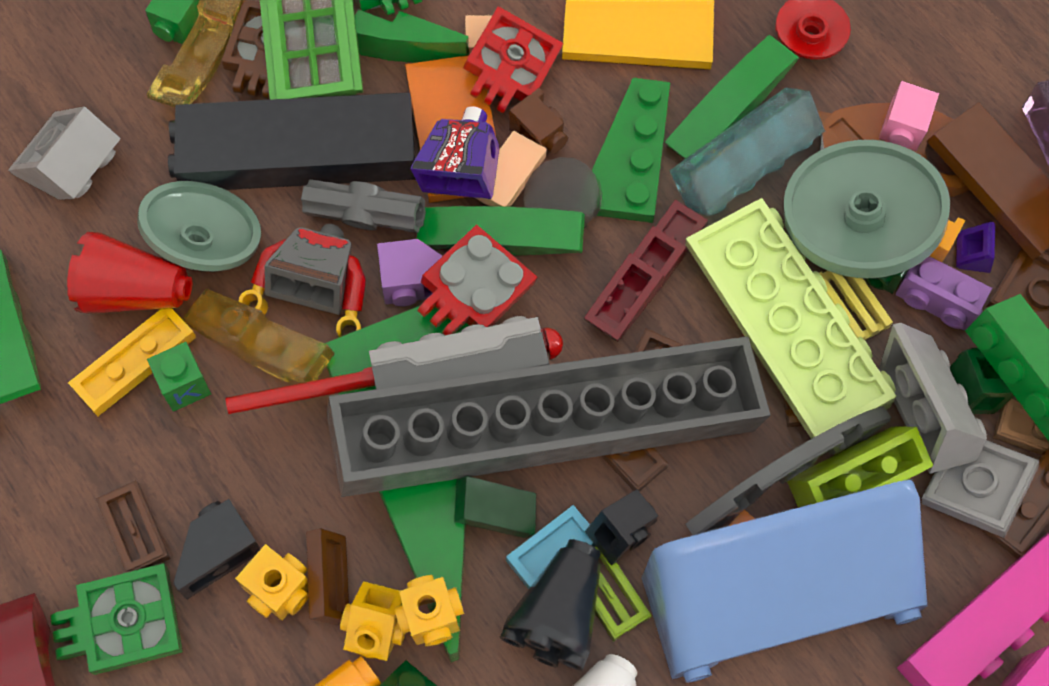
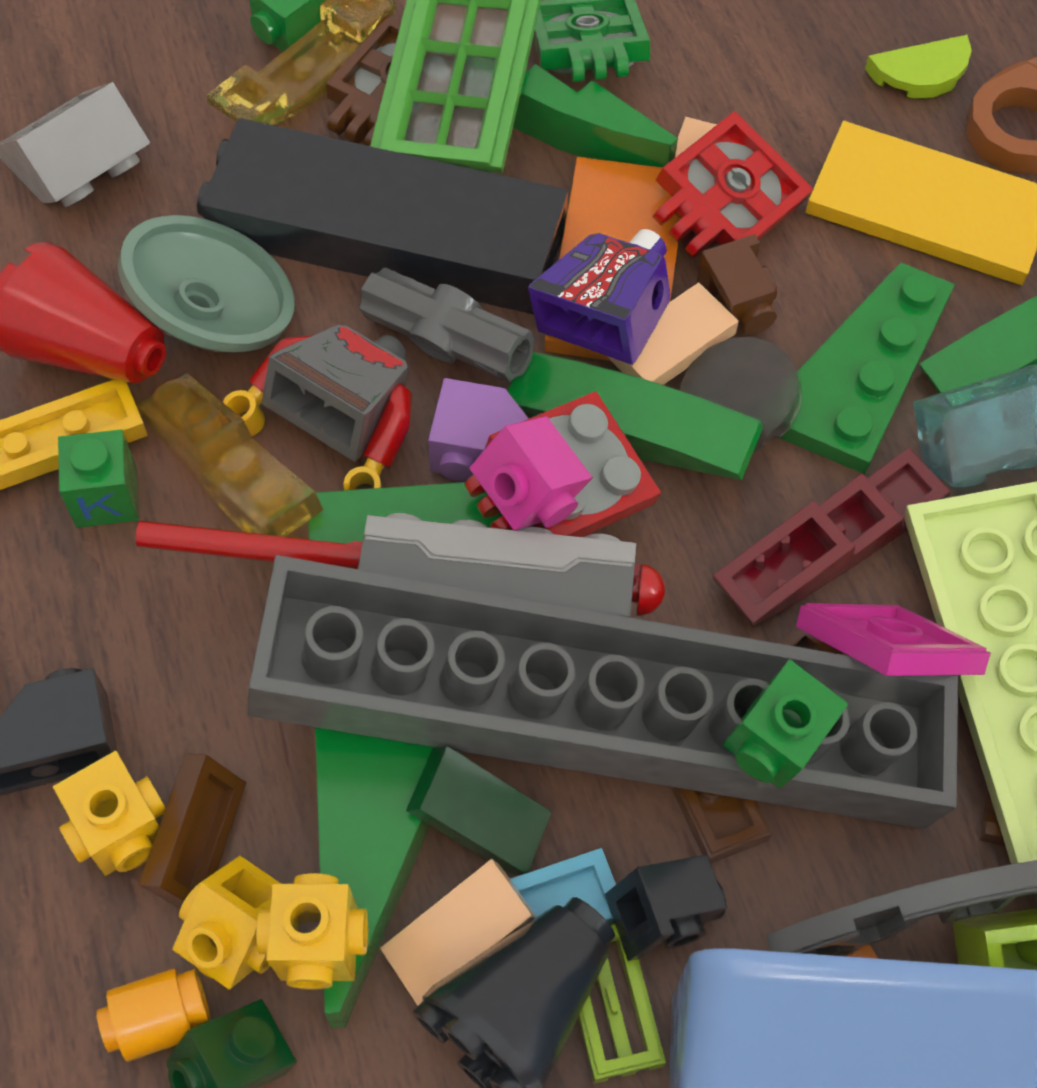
camera: 20 degrees right, 5 degrees down
(461, 294) = (531, 474): none -> dark pink brick
(507, 581) = (457, 929): none -> light nougat tile
(661, 401) = (784, 726): none -> green brick
(703, 326) = (893, 639): none -> dark pink tile

